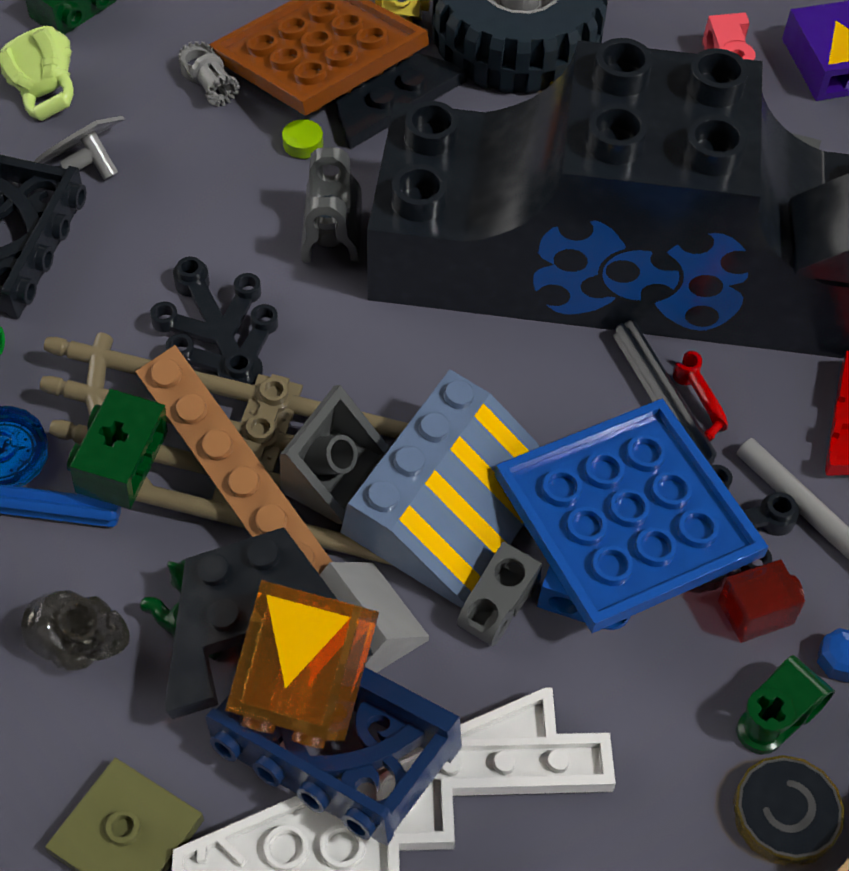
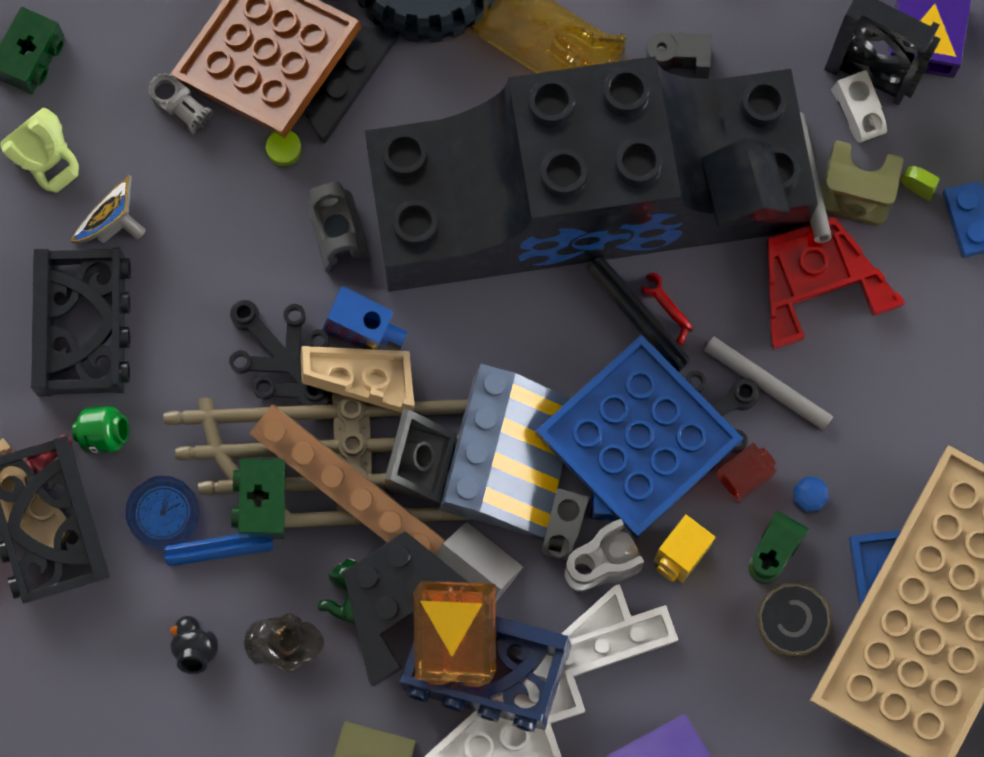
camera: 15 degrees left, 20 degrees up
(296, 356) = (361, 374): none -> tan wing
(320, 304) = (348, 319): none -> blue torso
(549, 650) = (609, 556): none -> light grey piece
(653, 661) = (683, 550): none -> yellow brick

